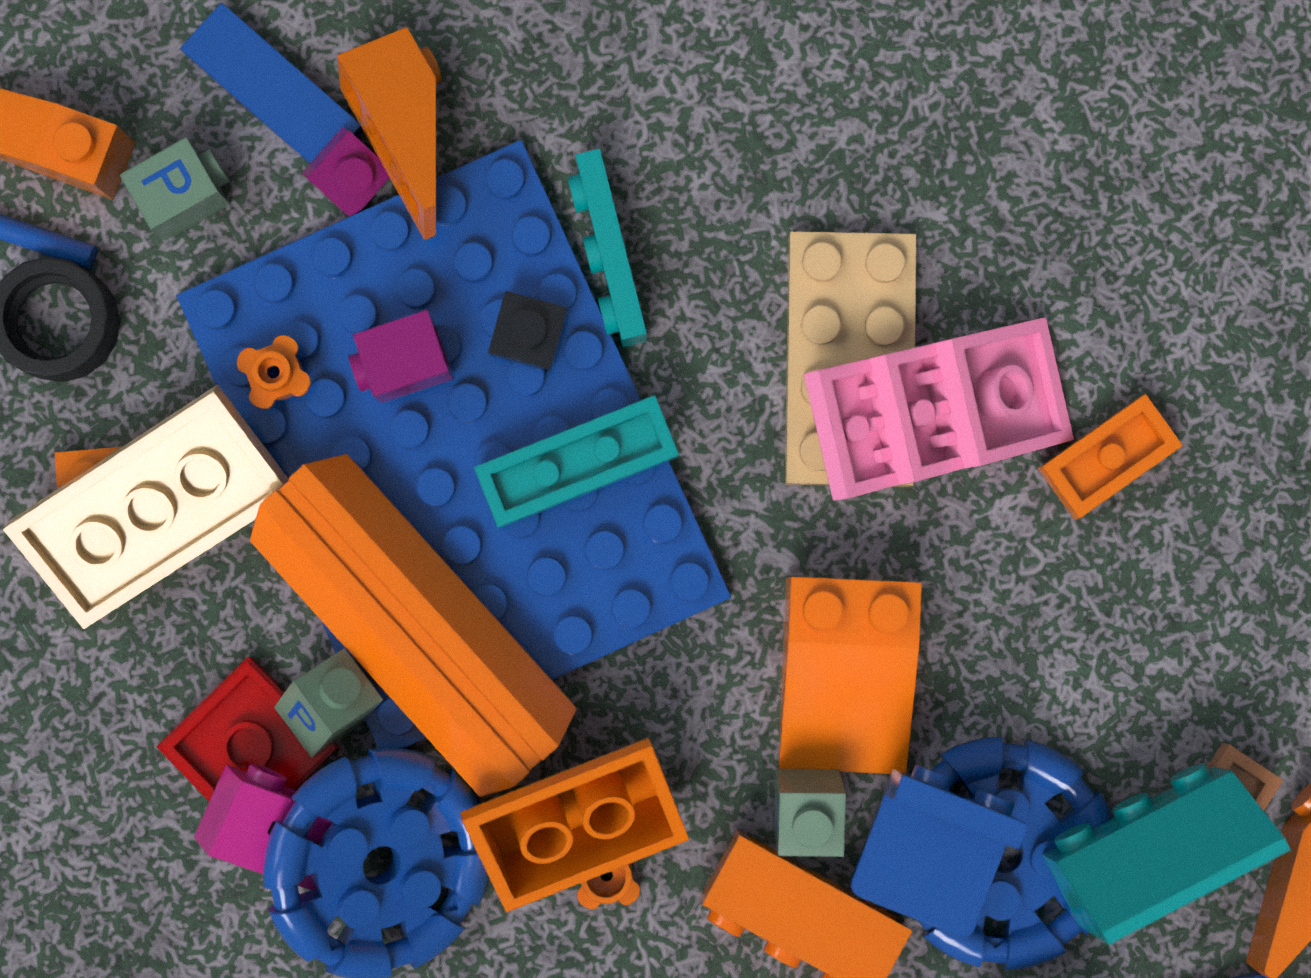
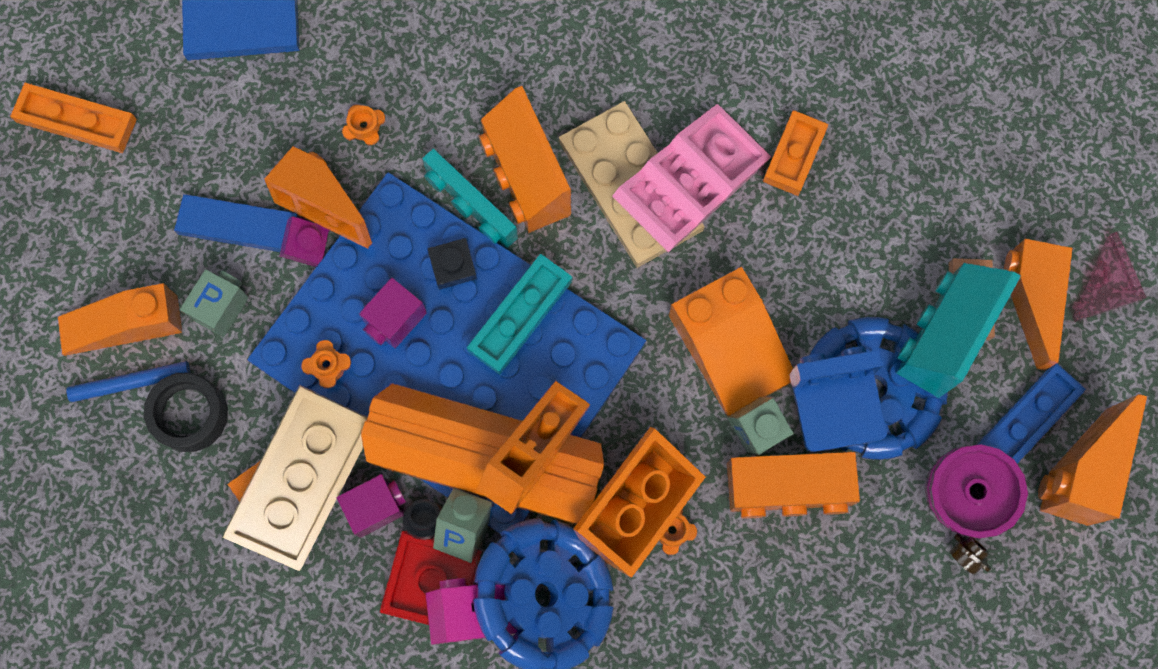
camera: 30 degrees left, 10 degrees down
(227, 600) = (372, 505): none -> magenta brick
(283, 657) = (421, 519): none -> black plate
(474, 668) = (531, 447): none -> orange slope
(529, 28) = (358, 114): none -> orange plate
(714, 245) = (525, 162): none -> orange slope

